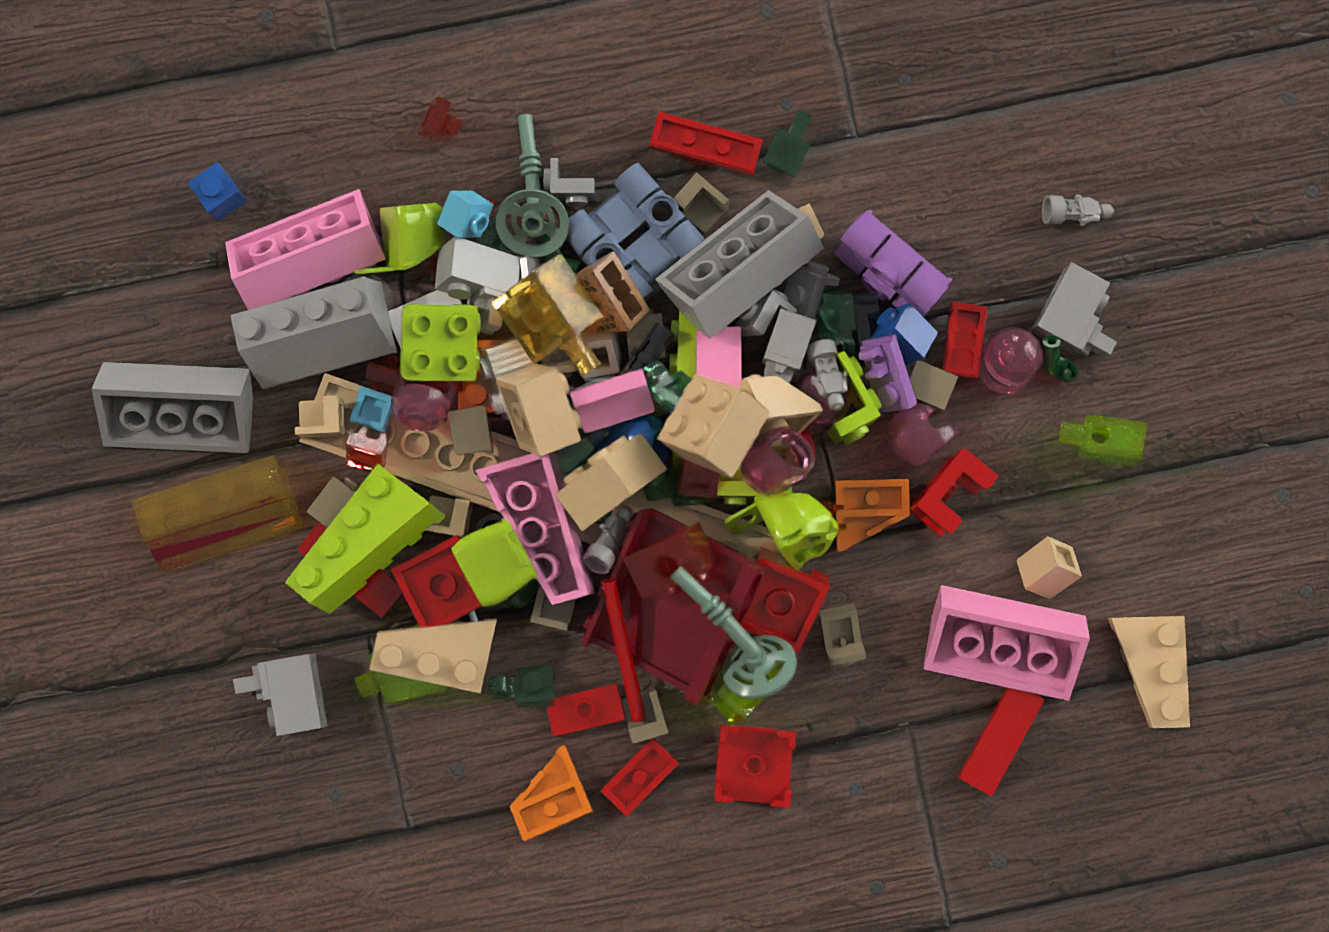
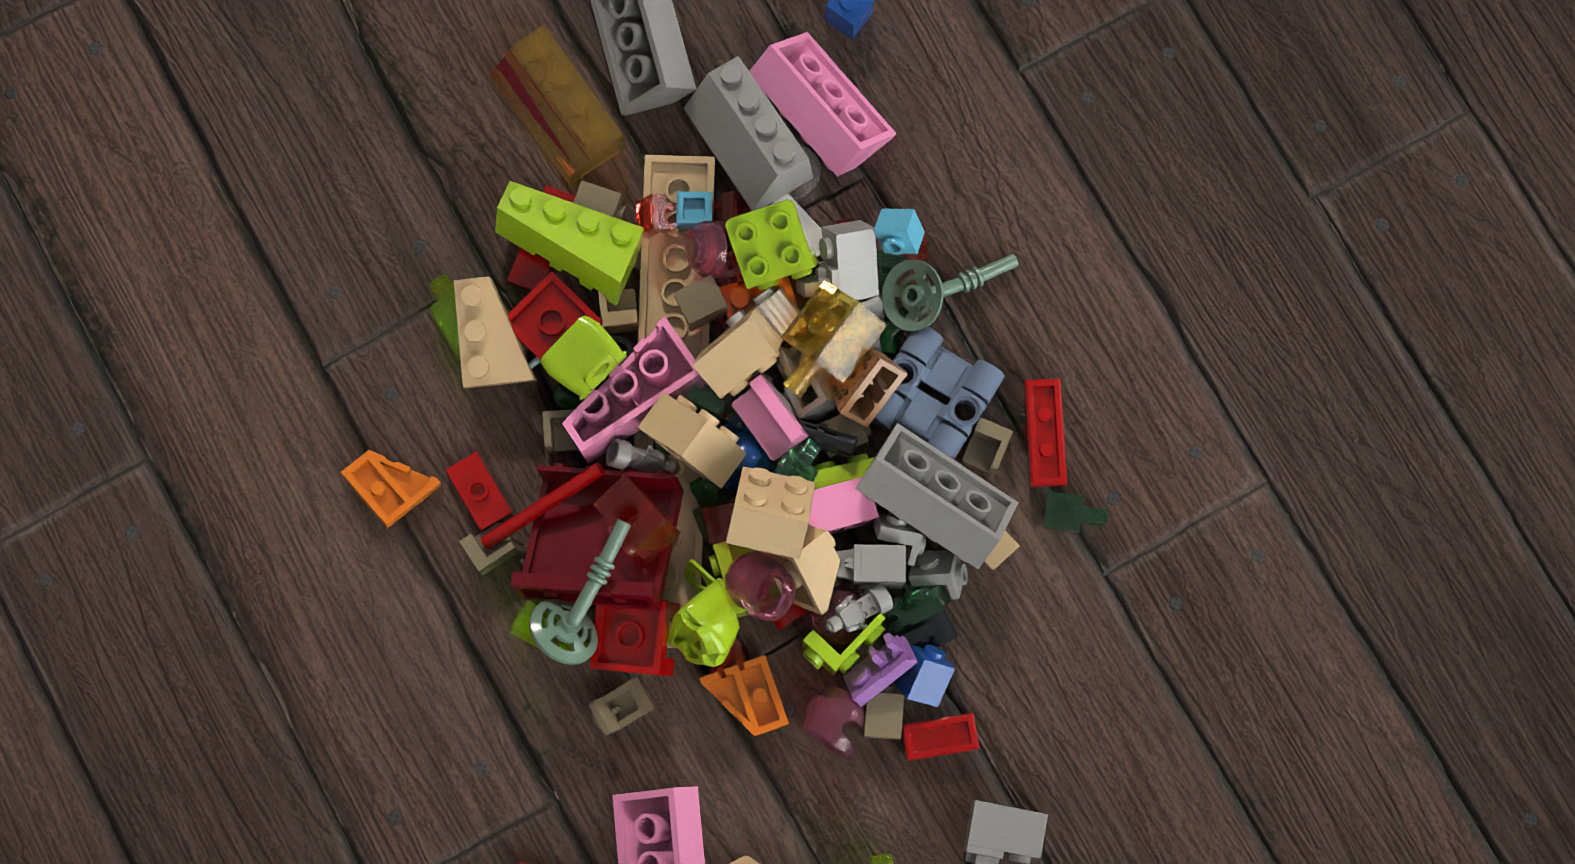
camera: 70 degrees right, 5 degrees down
(293, 690) = (414, 224): light grey hinge -> none
(321, 418) = (671, 167): tan panel -> none
(409, 235) = (864, 189): lime piece -> none
(438, 120) = (983, 181): clear red tile -> none
(531, 687) = (484, 434): clear green plate -> none
(572, 190) = (958, 324): light grey bracket -> none
(639, 776) = (431, 560): red plate -> none
(754, 765) = (474, 663): red panel -> none
(890, 265) = (981, 638): medium lavender piece -> none
(965, 470) = (791, 758): red panel -> none
(1012, 359) = (935, 787): clear pink helmet -> none
(1055, 363) = (947, 832): dark green arm -> none
(1085, 210) = (1105, 810): light grey piece -> none

